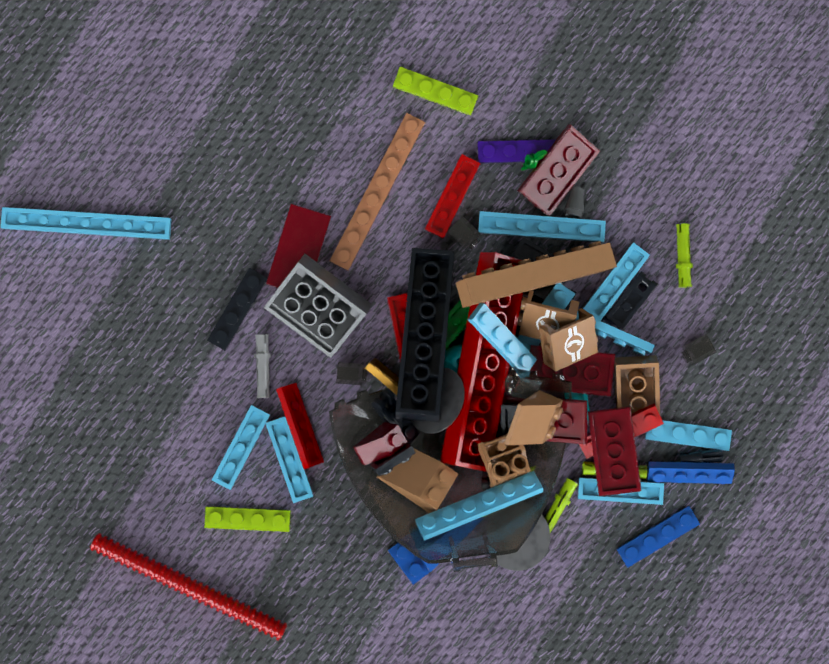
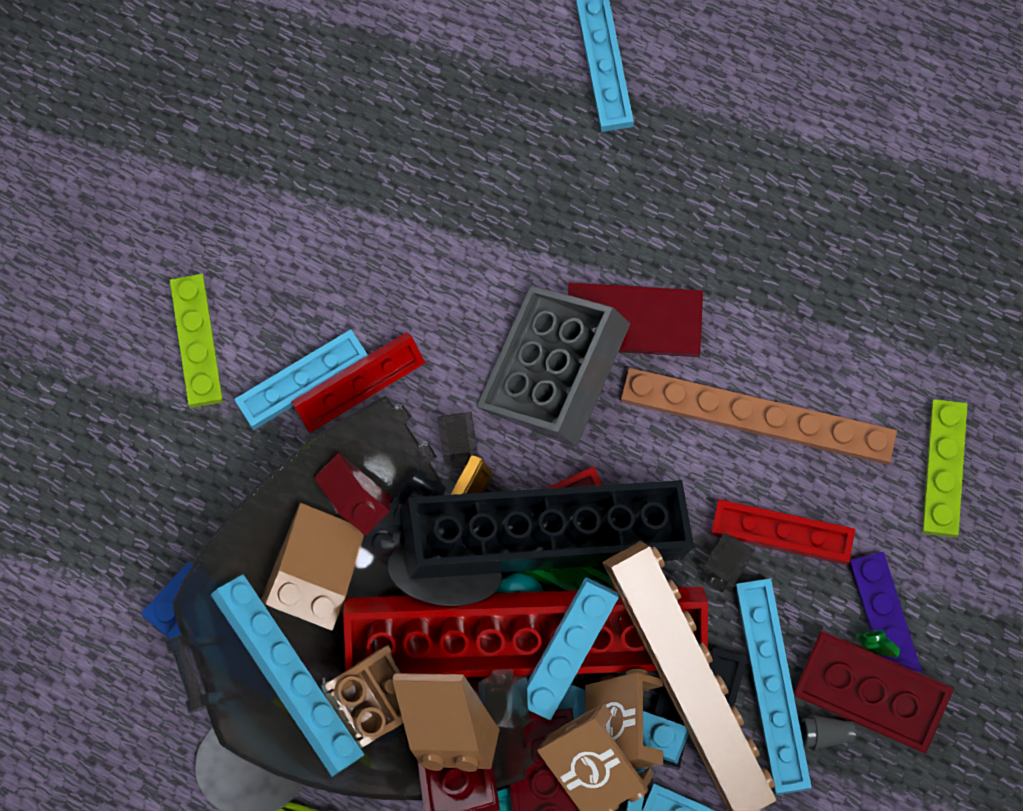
camera: 80 degrees right, 15 degrees down
(188, 586) = (73, 279): red piece -> none
(237, 309) = (518, 251): black plate -> none
(241, 447) = (305, 304): medium azure plate -> none
(262, 364) = (438, 307): light grey pin -> none
(386, 464) = (321, 508): black plate -> none

